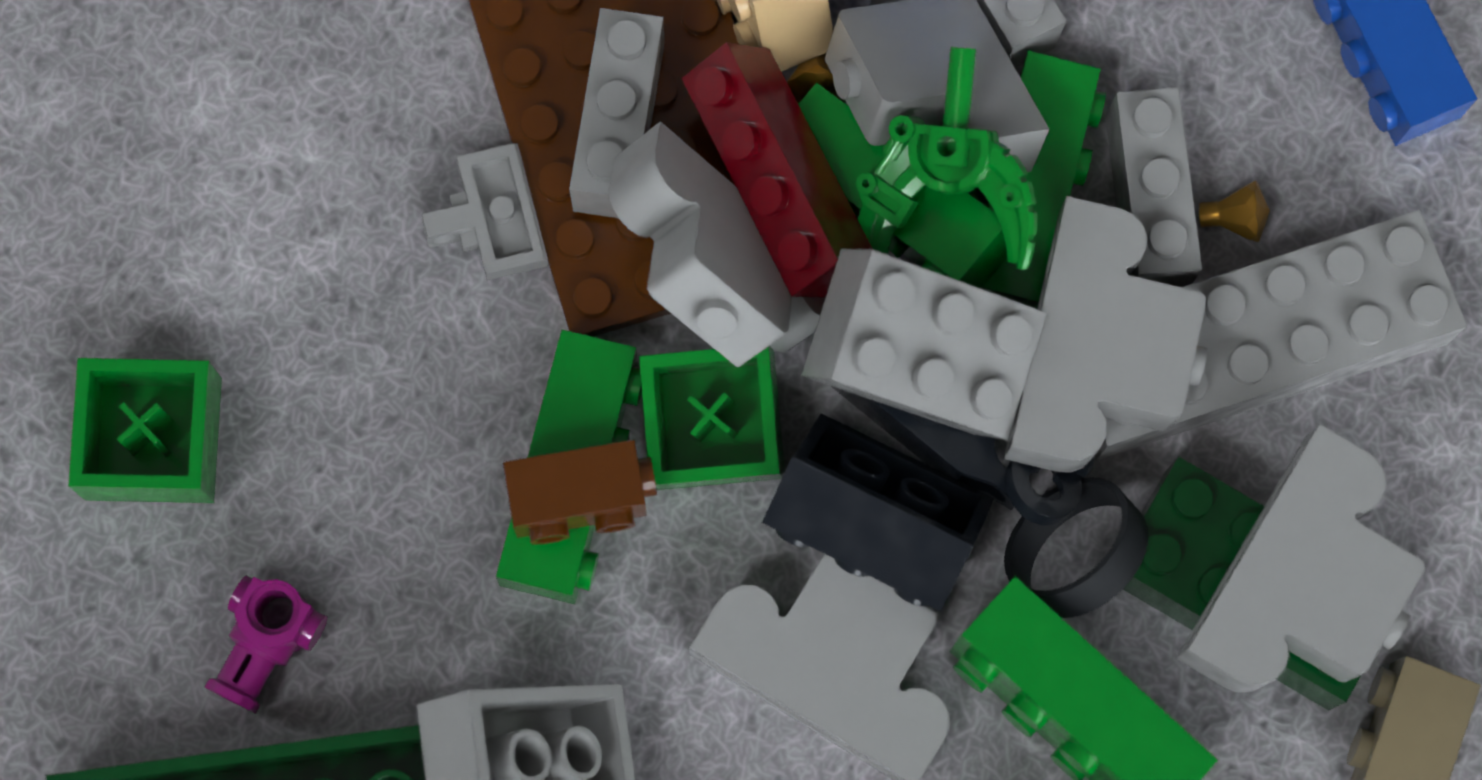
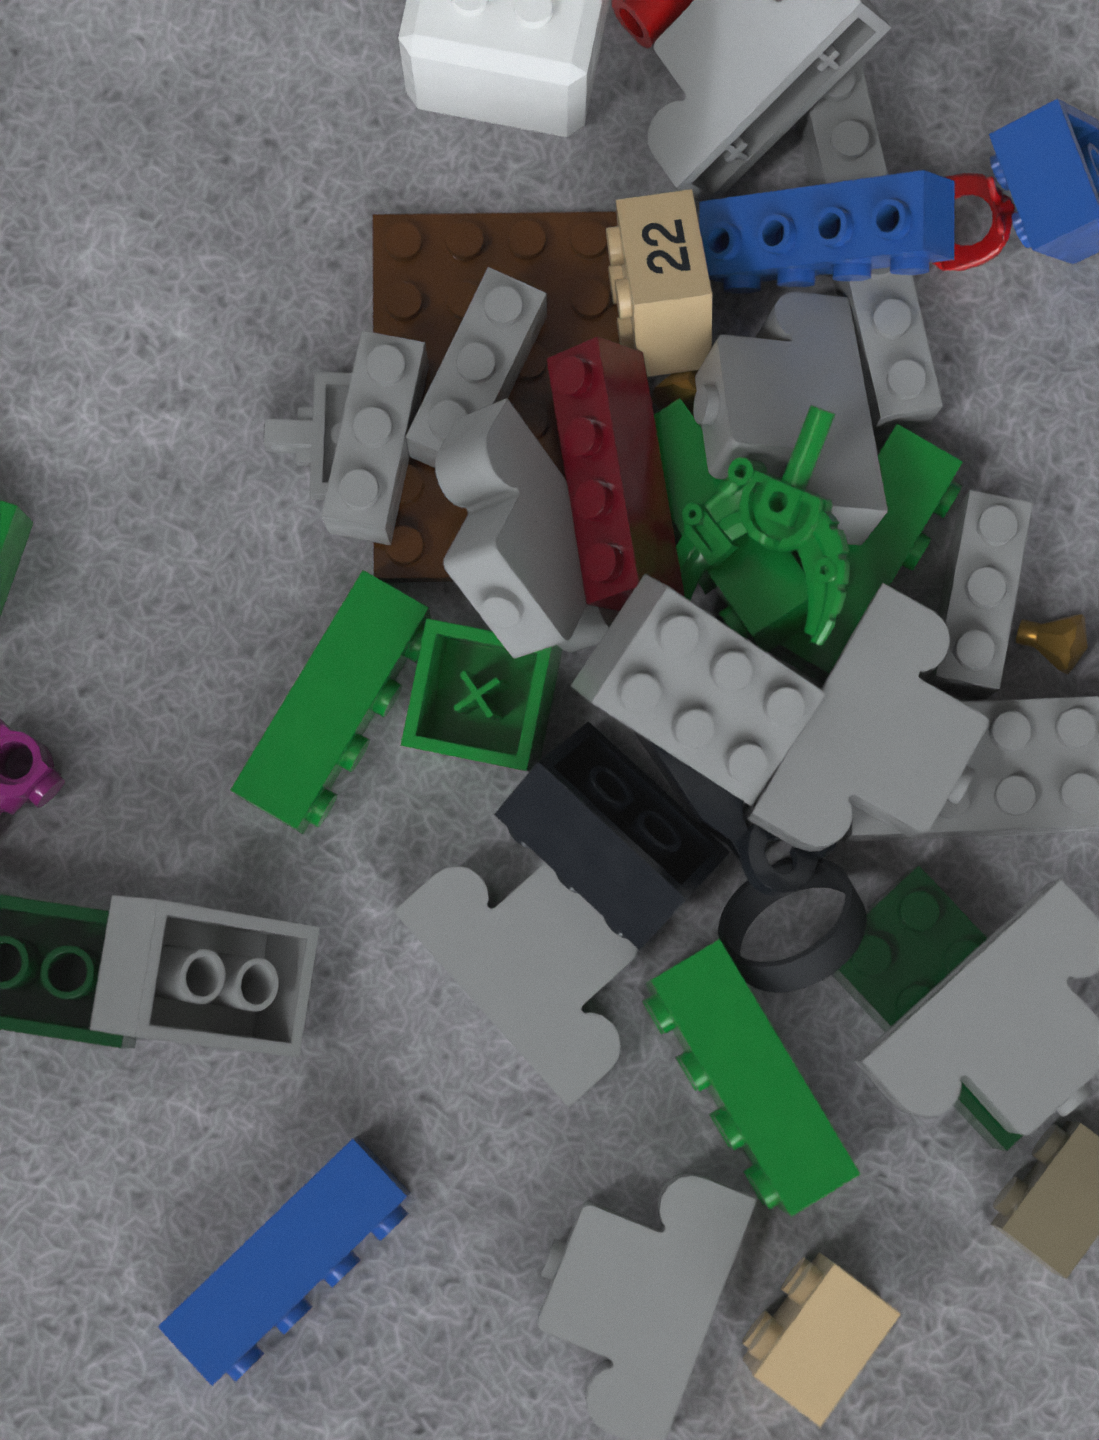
camera: 20 degrees right, 5 degrees up
(538, 200) = (371, 442): none -> light grey brick
(577, 490) = (329, 731): reddish brown brick -> none

